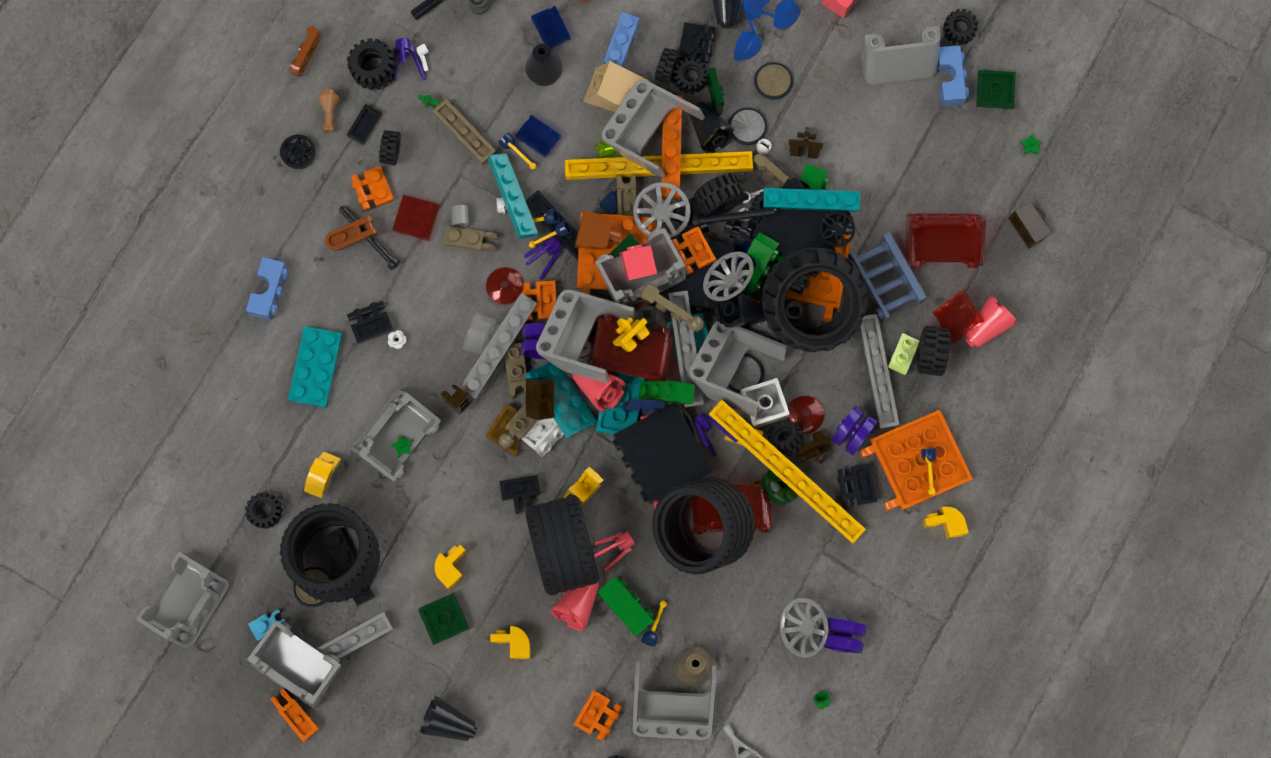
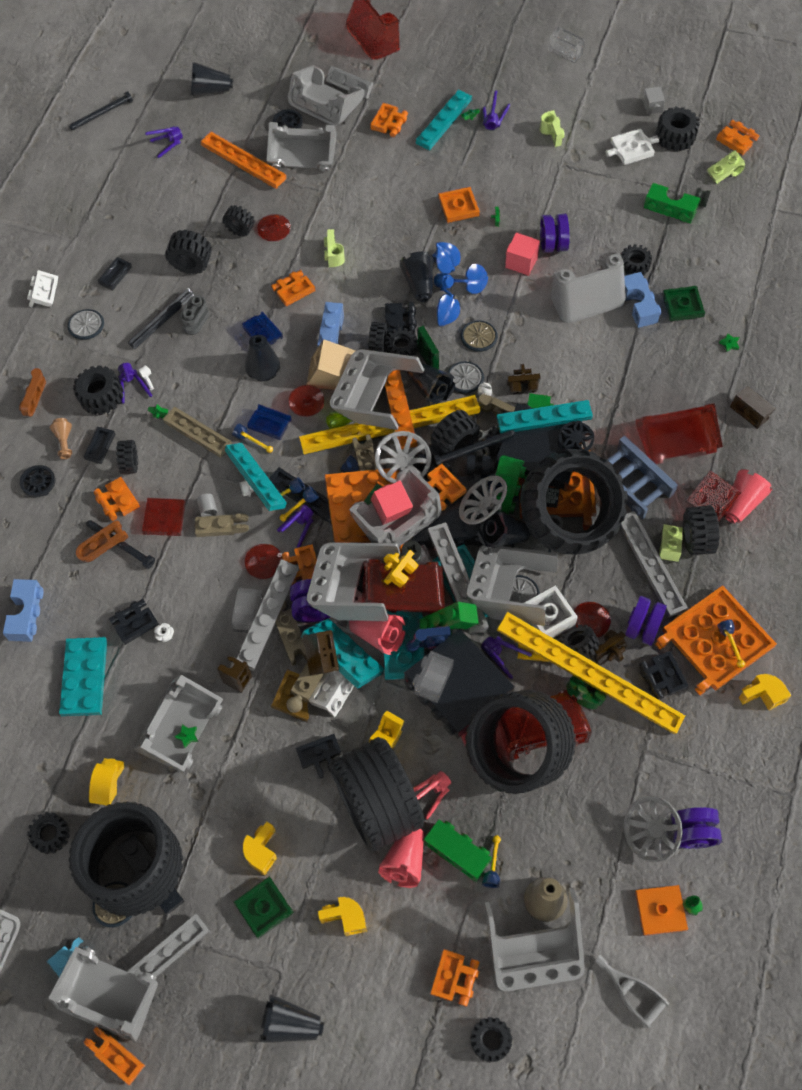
camera: 10 degrees left, 15 degrees down
(580, 112) = (303, 395): none -> clear red dish
(595, 232) = (343, 487): dark orange torso -> none
(638, 446) = (433, 676): none -> clear brick
(652, 295) = (412, 529): dark tan plate -> none
(793, 698) = (661, 910): none -> orange plate

